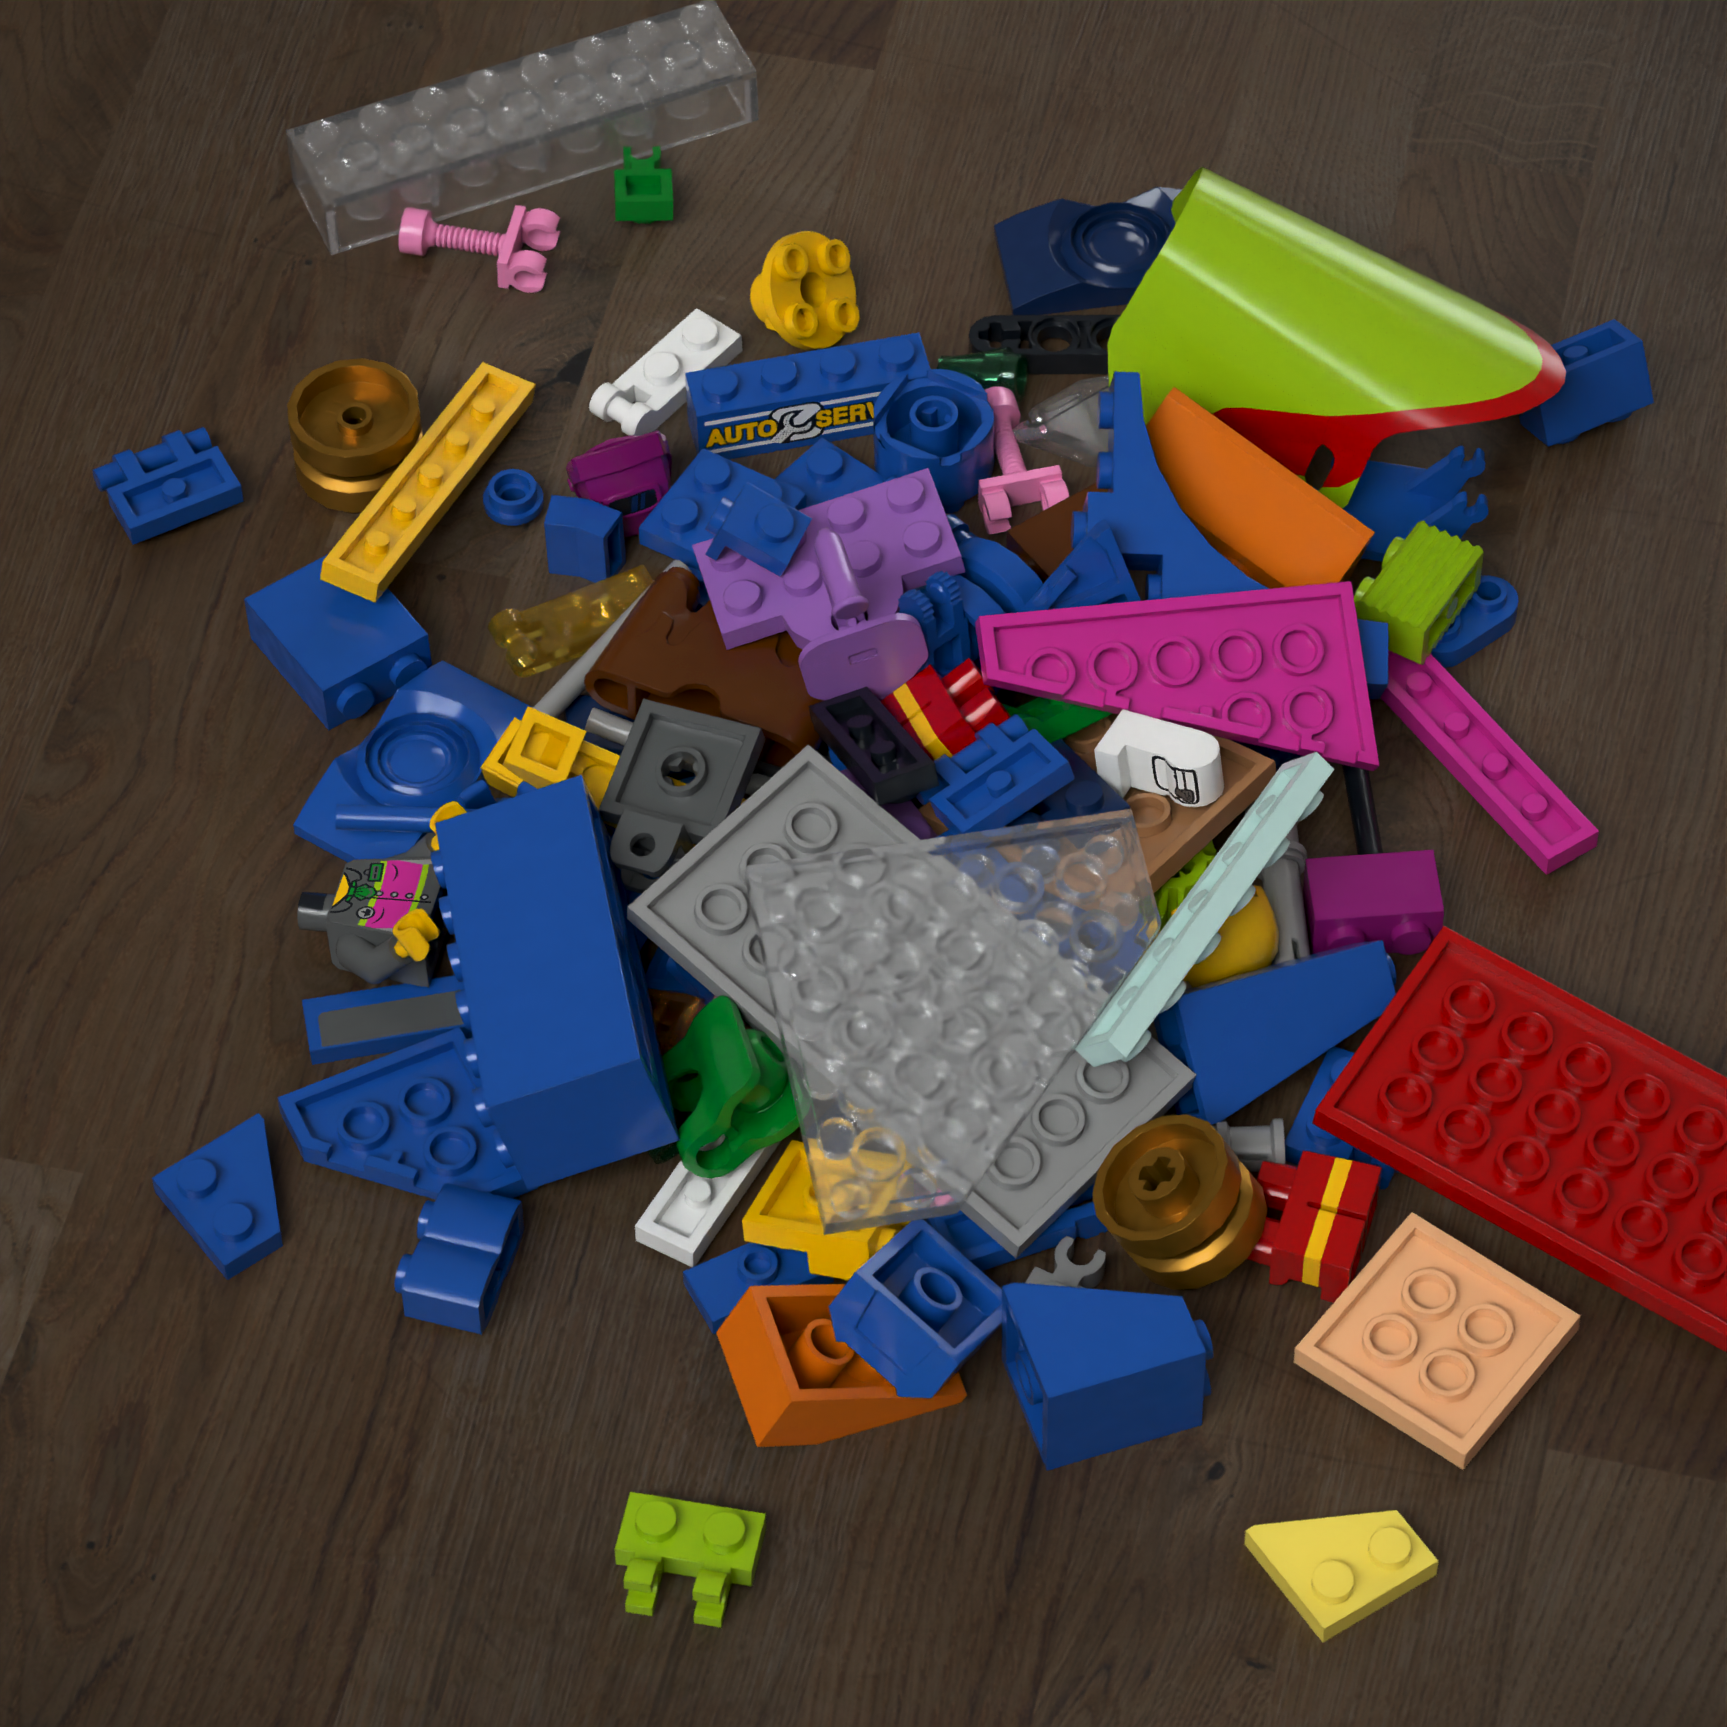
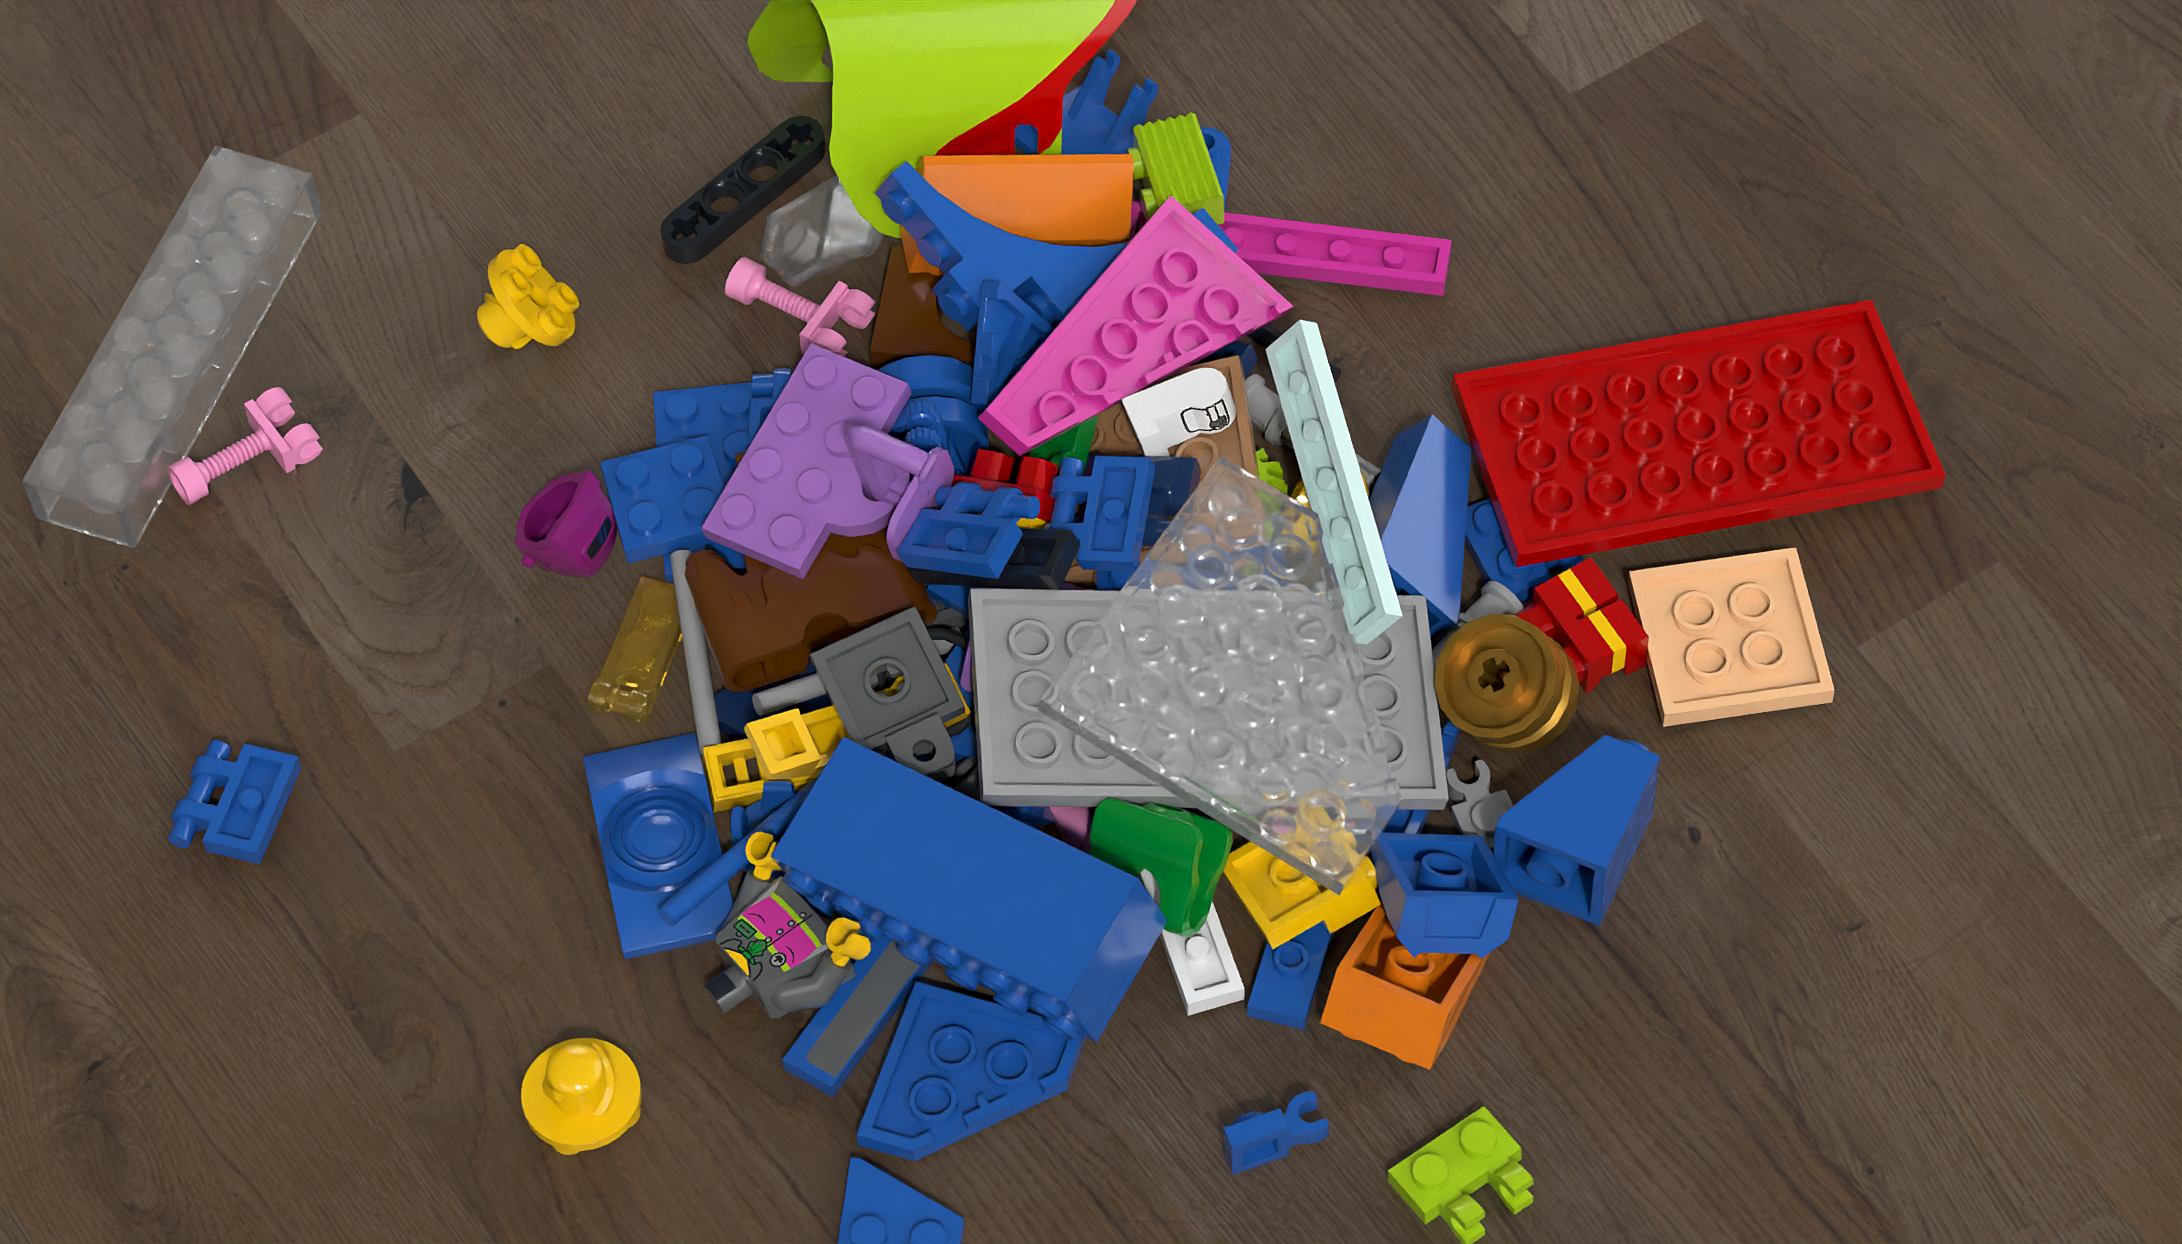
camera: 45 degrees left, 5 degrees up
(137, 897) = (581, 1095): none -> yellow plate
(336, 645) = (499, 800): blue brick -> none
(351, 430) = (341, 652): pearl gold wheel -> none
(427, 482) = (439, 642): yellow plate -> none
(460, 1258) = (1102, 1125): blue brick -> none
(513, 498) = (489, 595): blue plate -> none
(567, 1379) = (1267, 1137): none -> blue plate
(584, 538) = (585, 592): blue piece -> none
(643, 189) = (312, 324): green plate -> none
(659, 376) = (489, 435): white plate -> none
(757, 528) = (754, 476): blue bracket -> none
(797, 396) = (616, 371): blue brick -> none
(865, 706) = (963, 540): none -> blue plate
(938, 426) = (738, 326): blue brick -> none
(991, 369) = (707, 261): clear green cone -> none
(1081, 253) = (682, 114): dark blue slope -> none
(1342, 1565) = (1835, 823): light yellow wing -> none
(1373, 899) = (1384, 395): magenta brick -> none

